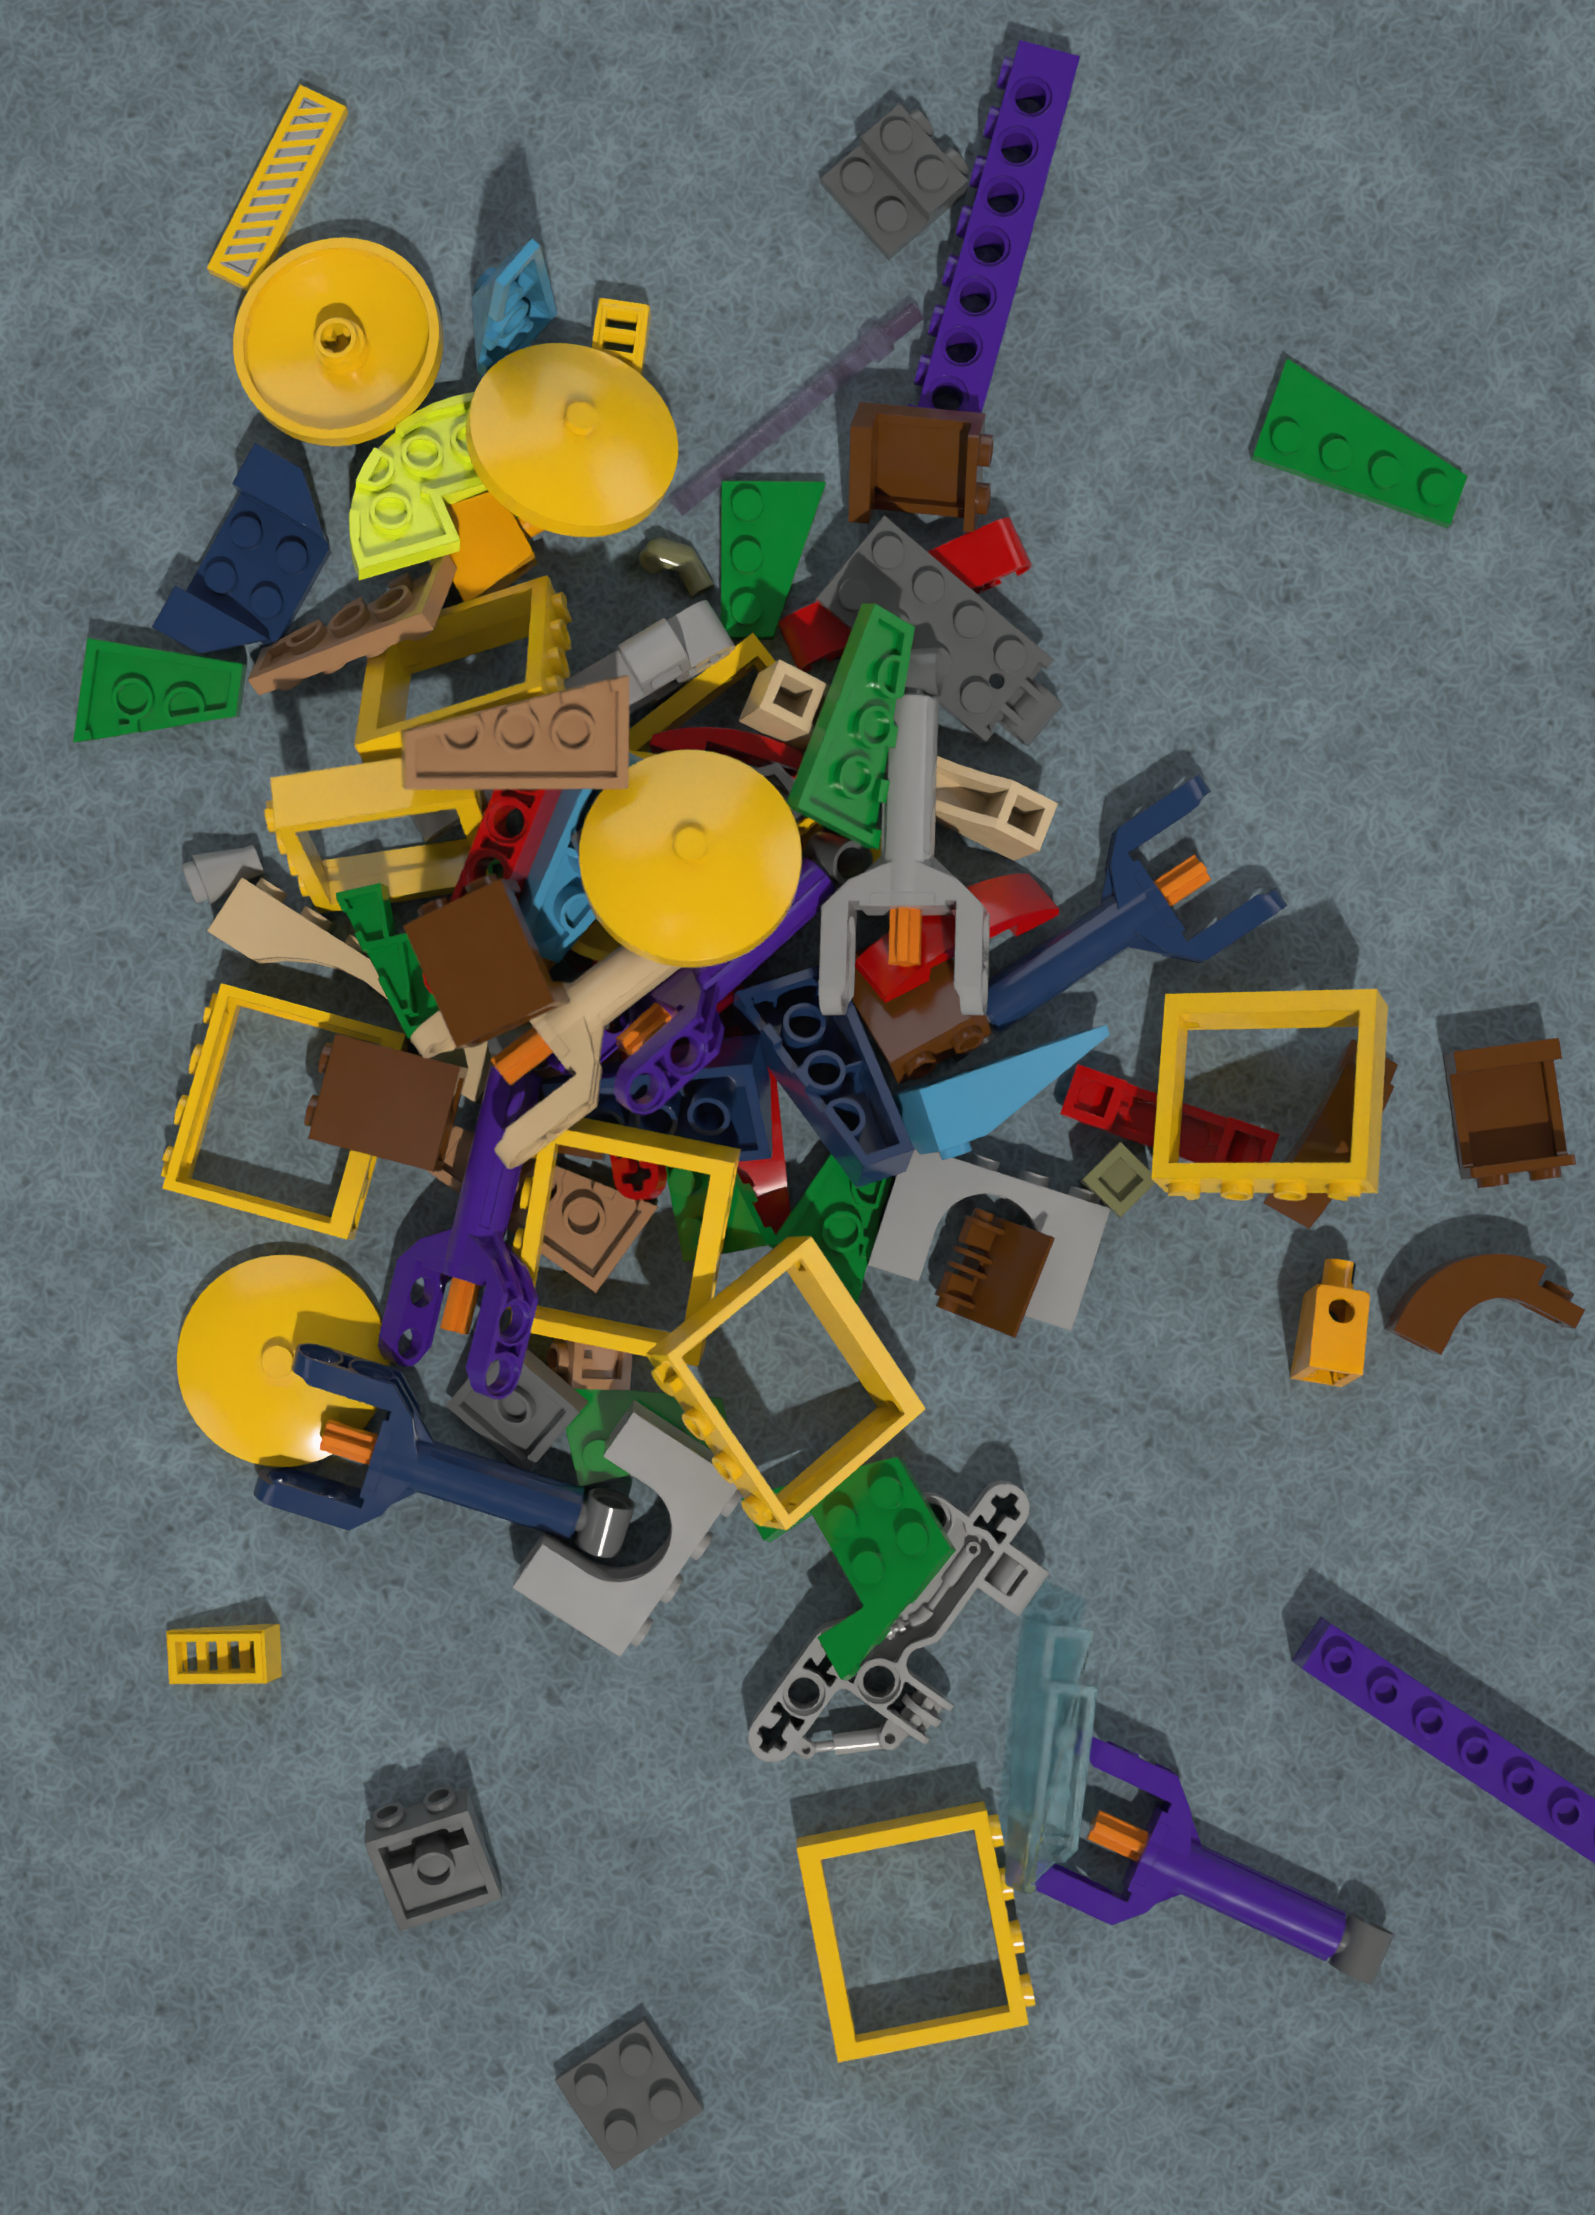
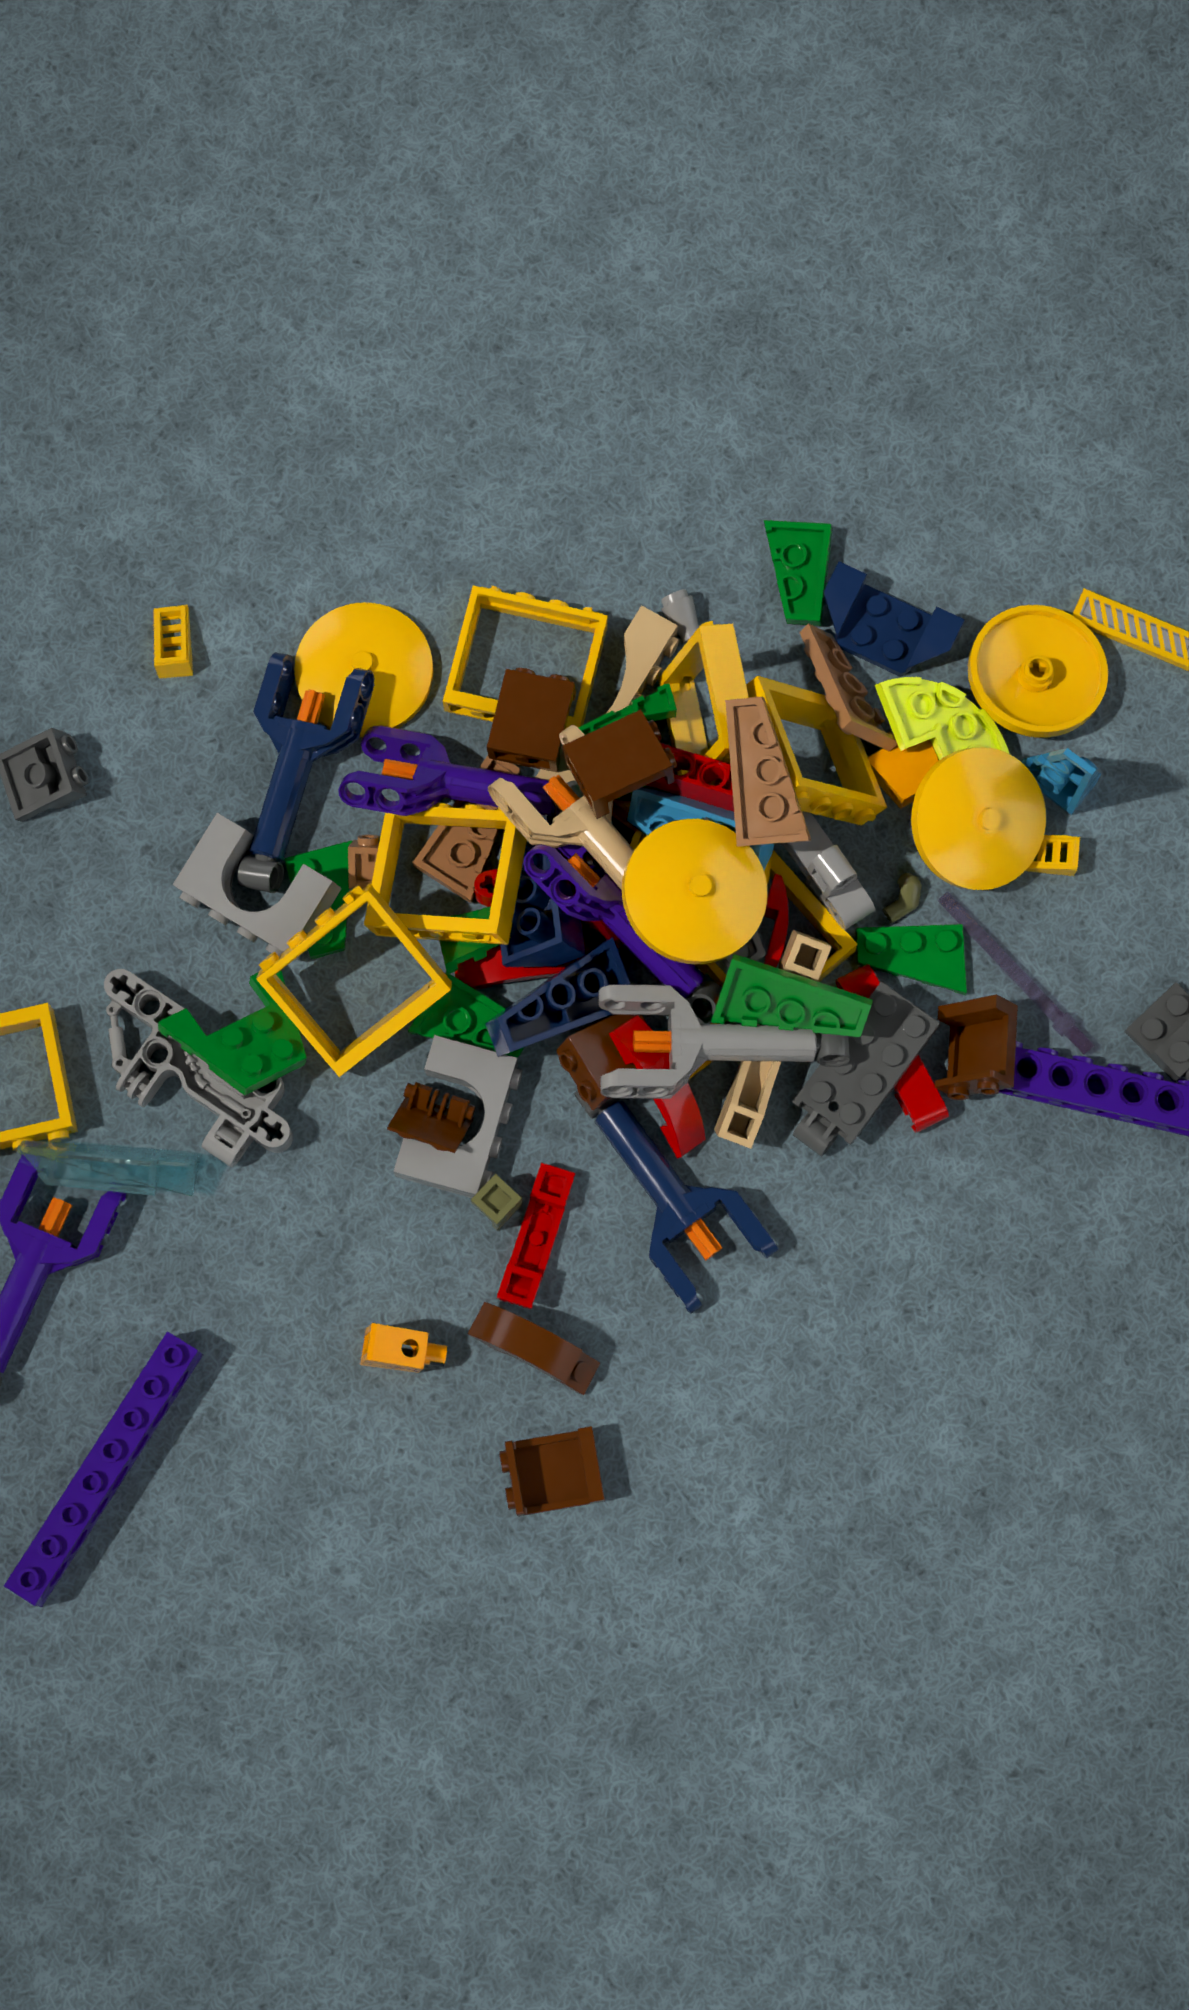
camera: 90 degrees right, 10 degrees down
(525, 1420) = (331, 820): dark grey plate -> none
(972, 1104) = (545, 1097): dark azure wedge -> none
(1270, 1011) = (547, 1351): yellow window -> none
(1345, 447) = (1014, 1346): green wing -> none
(1447, 1292) = (424, 1428): reddish brown arch -> none

